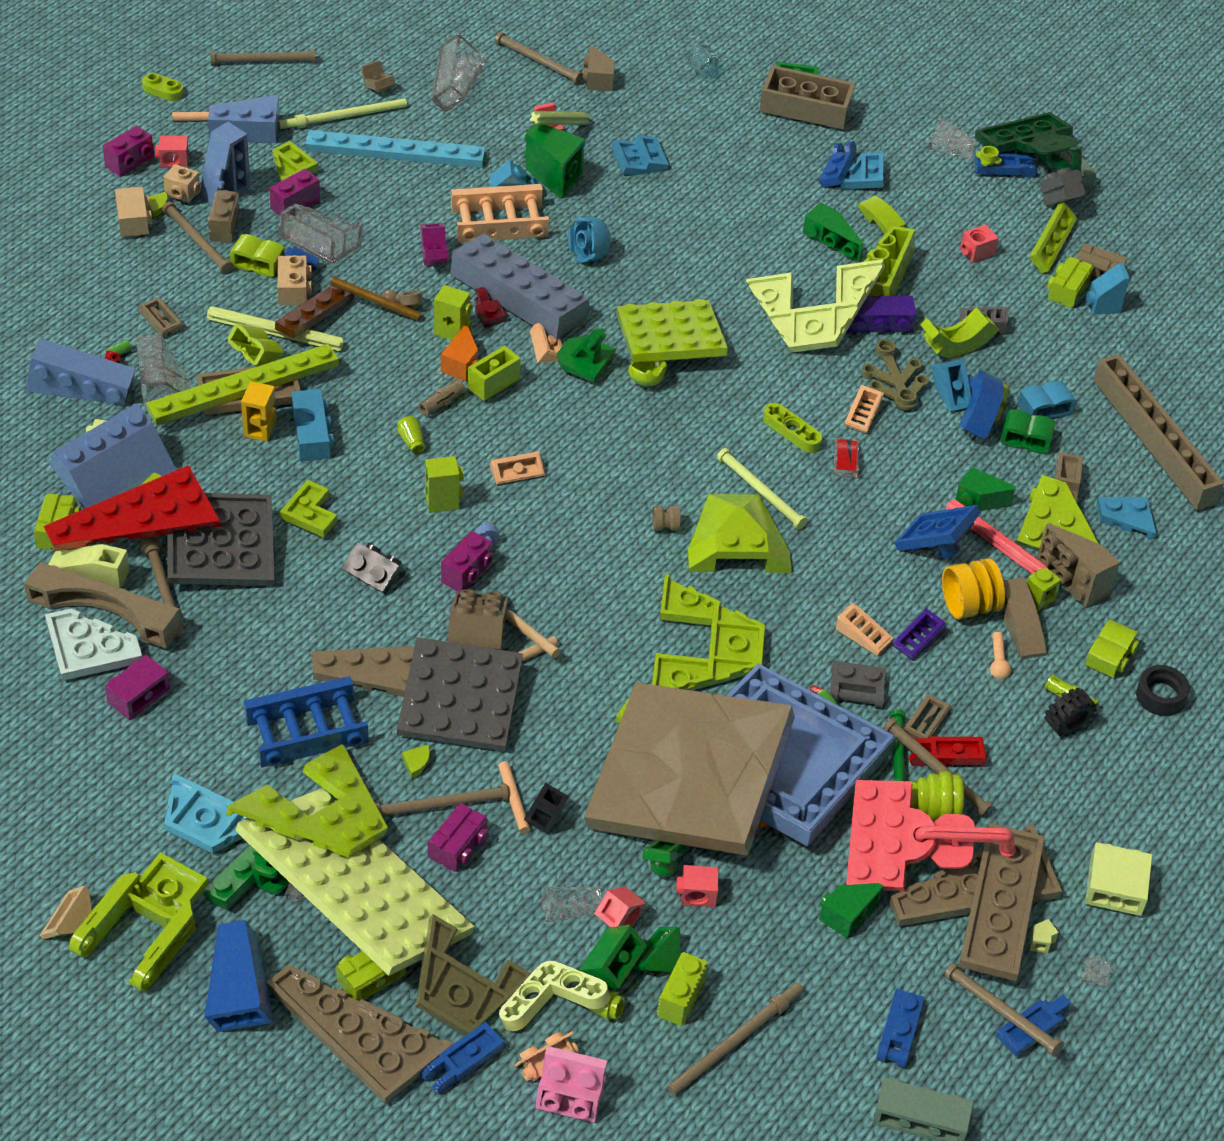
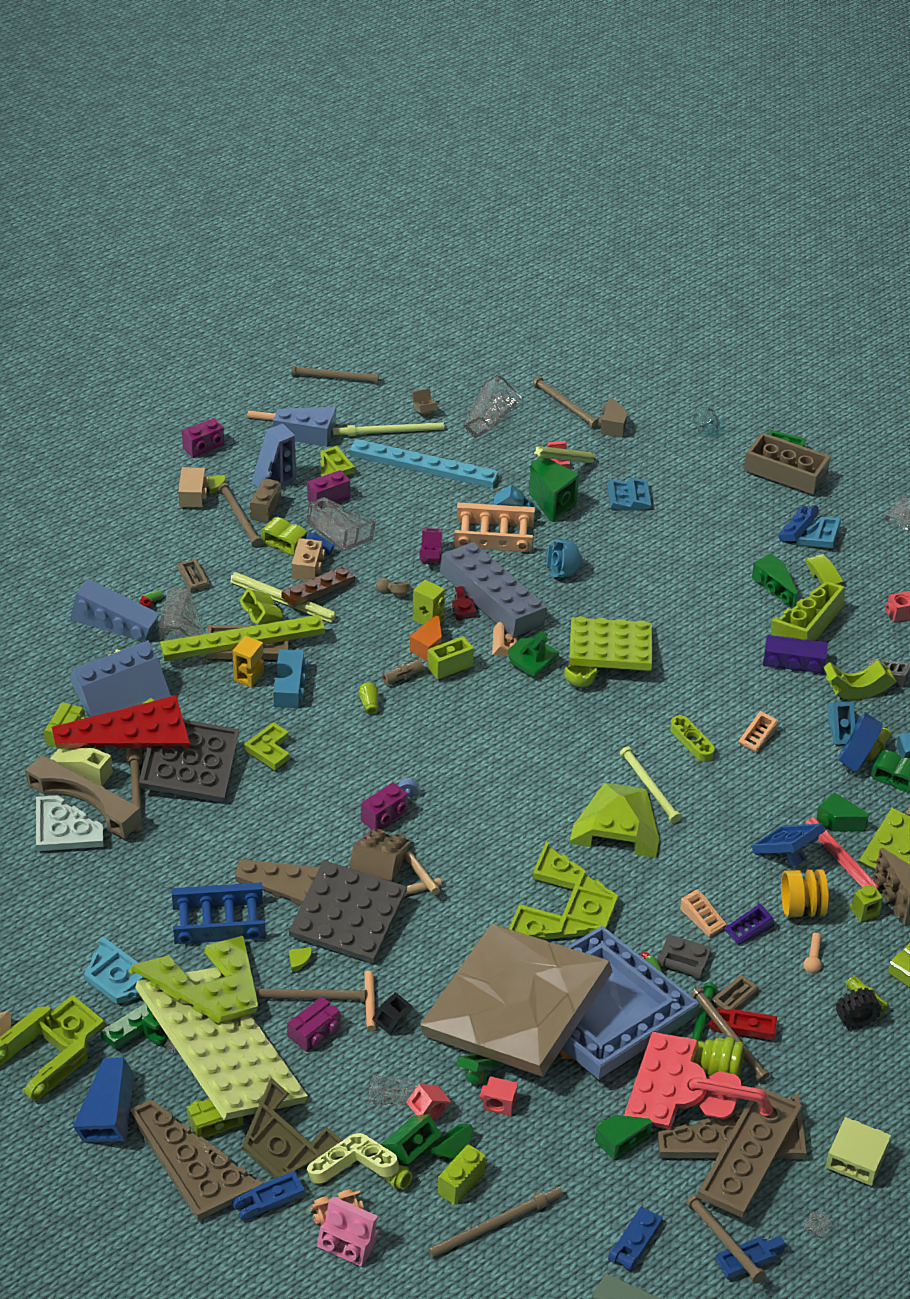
camera: 15 degrees right, 5 degrees down
(137, 687) = (92, 865): magenta brick -> none
(162, 86) = (246, 389): lime plate -> none
(172, 151) = (239, 443): coral brick -> none
(182, 183) = (238, 469): tan brick -> none
(372, 567) = (307, 800): bracket -> none
(375, 298) = (370, 583): pearl gold bar -> none
(442, 484) = (381, 740): lime brick -> none
(517, 468) = (449, 737): light nougat slope -> none
(666, 518) = (561, 796): dark tan wheel -> none
(816, 325) = (741, 656): yellowish green wing -> none
(846, 458) = (730, 770): slope -> none
(903, 397) = (796, 727): olive plant -> none
(1022, 619) = (842, 925): dark tan slope -> none
(1043, 936) = (780, 1187): yellowish green piece -> none

